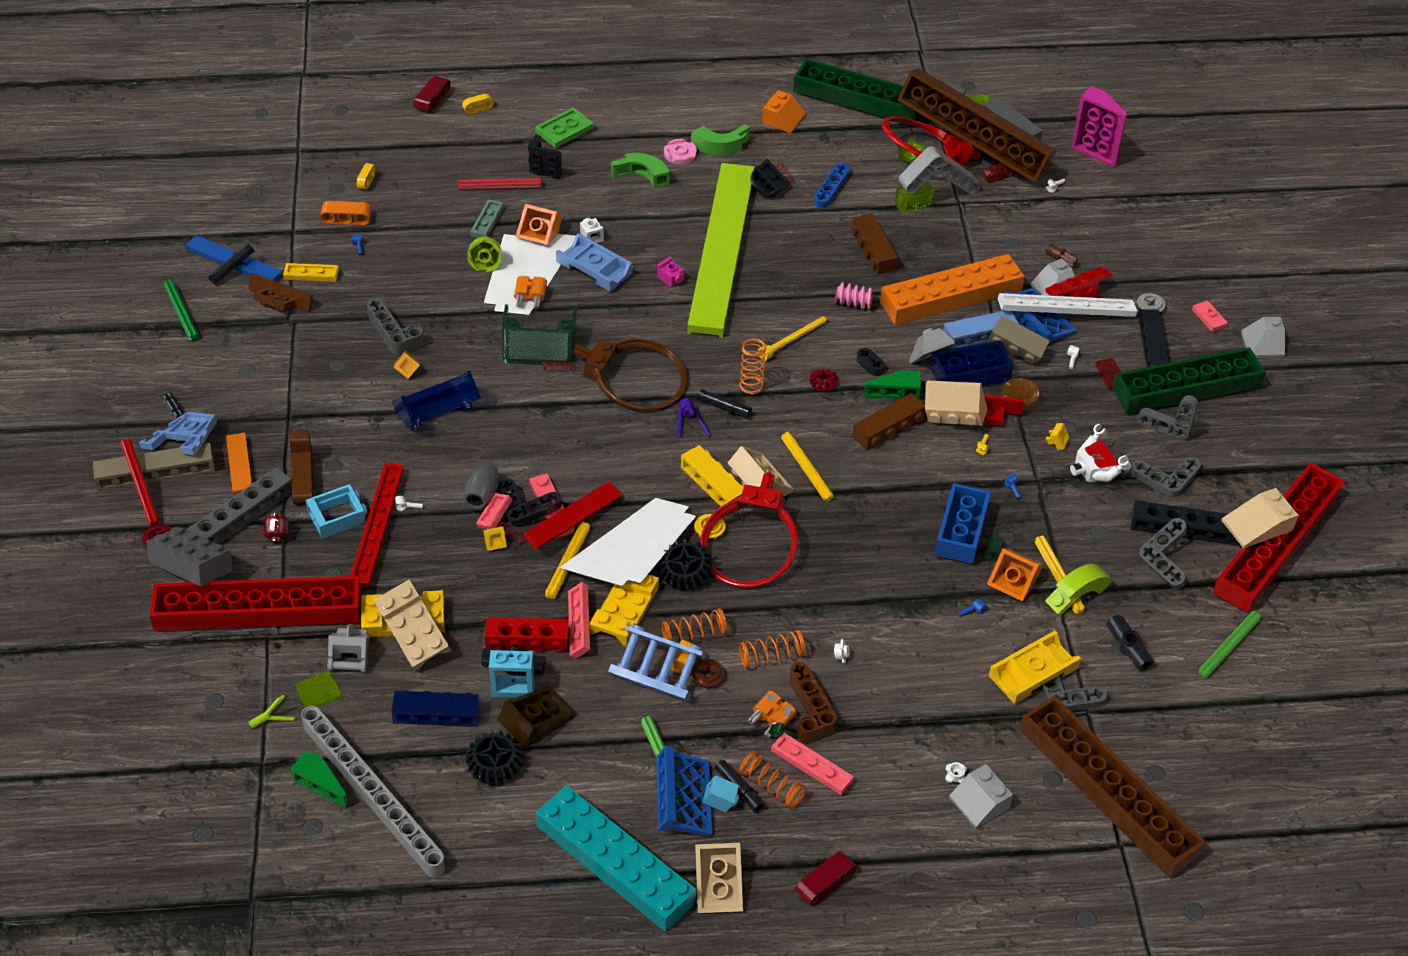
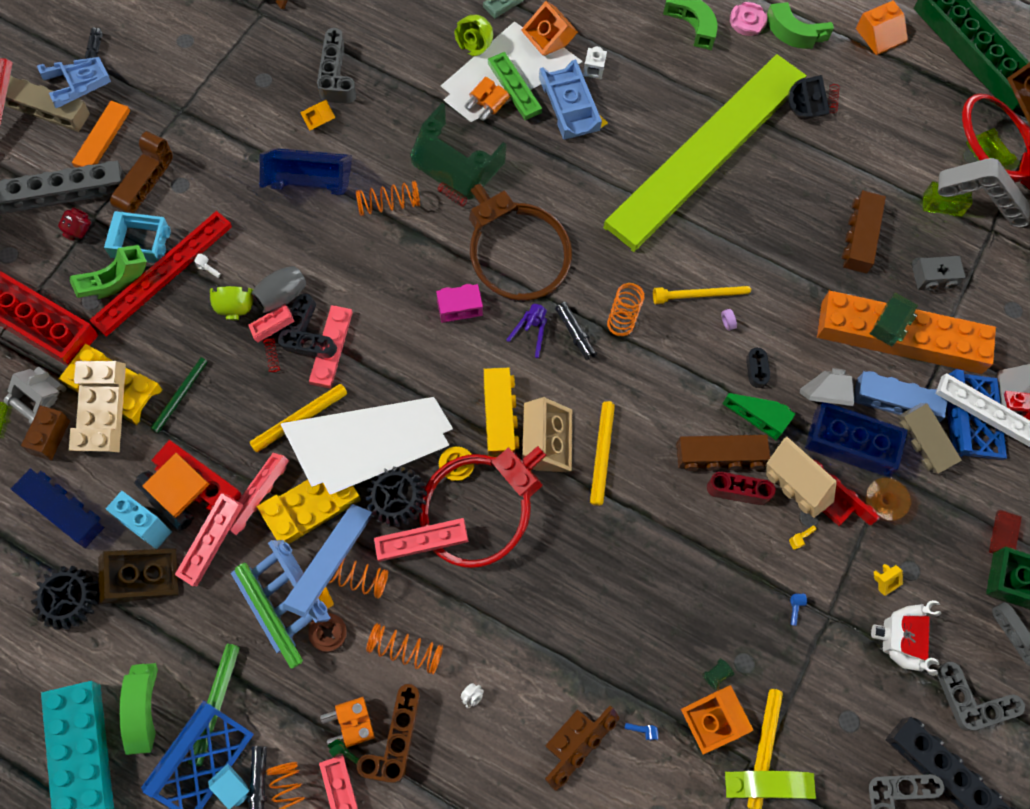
camera: 30 degrees right, 20 degrees up
(345, 541) = (114, 278): none -> bright green arch
(382, 667) = (45, 433): none -> reddish brown brick
(452, 511) = (231, 301): none -> lime cylinder
(462, 594) = (178, 396): none -> dark green bar
(495, 538) = (249, 353): yellow tile -> none
(520, 636) = (175, 485): none -> orange tile
(531, 384) = (416, 200): none -> orange piece
(554, 277) = (514, 85): none -> bright green plate
(572, 515) = (334, 373): red tile -> none
(573, 660) = (209, 539): none -> coral plate
(617, 785) = (135, 709): none -> bright green arch
(625, 428) = (459, 303): none -> dark pink brick
(660, 676) = (268, 615): none -> bright green axle
(670, 272) = (634, 151): dark pink brick -> none
(675, 619) = (327, 561): none -> medium blue tile
(726, 581) = (421, 539): none -> coral plate
(818, 383) = (699, 369): dark red gear -> none
(826, 342) = (729, 319): none -> lavender tile
(829, 184) = (872, 138): blue beam -> none
(854, 296) = (796, 282): bright pink piece -> none
(919, 436) = (748, 495): none -> dark red beam
(934, 638) = (575, 742): none -> reddish brown bracket
(940, 279) = (894, 319): none -> clear green brick
(945, 243) = (938, 273): none -> dark grey brick
(962, 523) = (705, 625): blue brick -> none
(1073, 352) = (982, 482): white hand -> none

